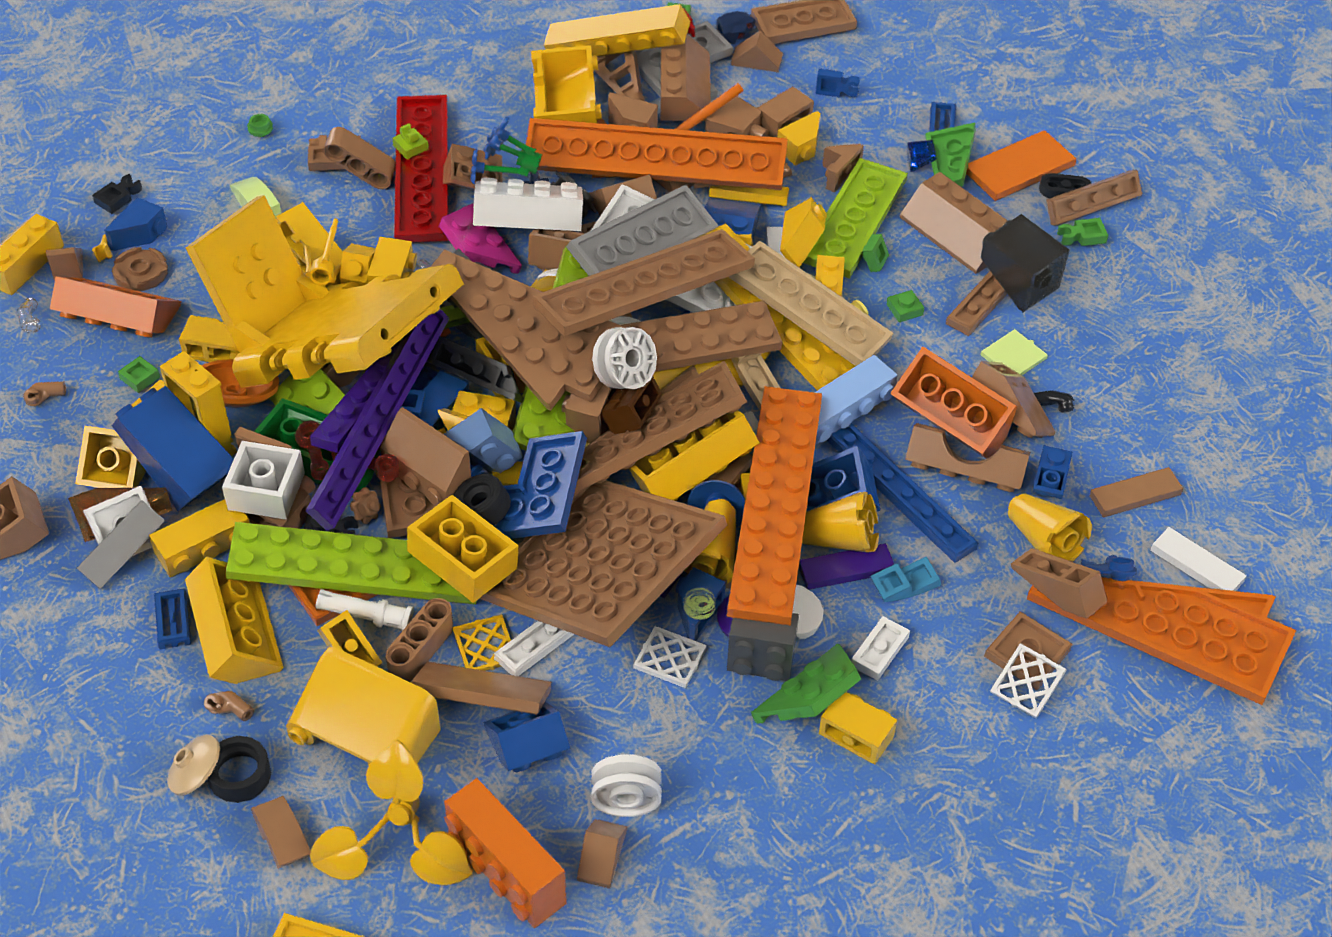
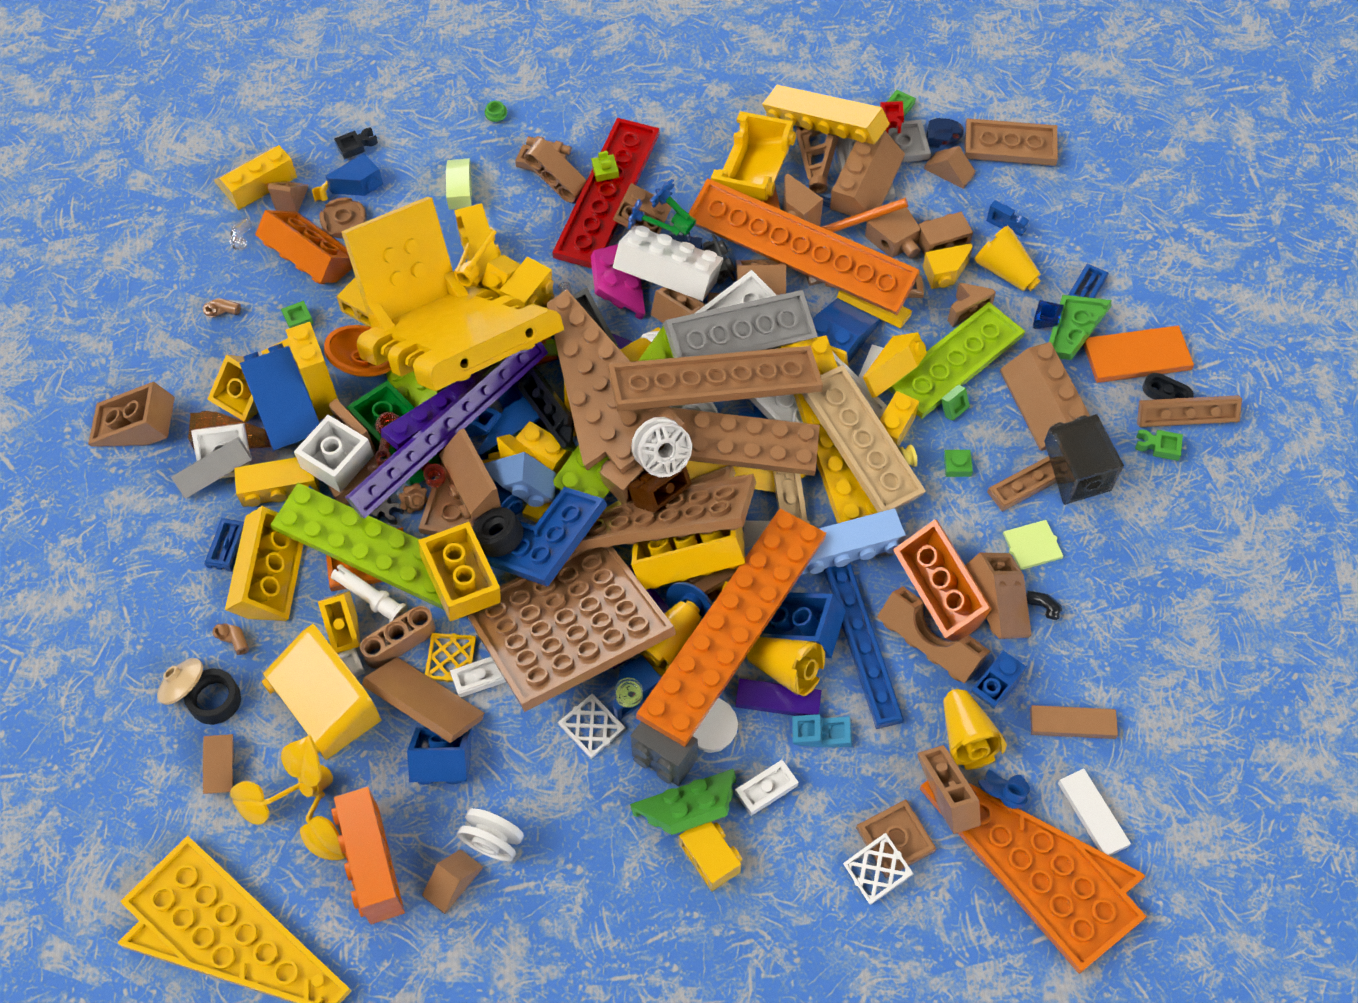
camera: 25 degrees right, 10 degrees up
(860, 117) = (1009, 260): none -> yellow cone

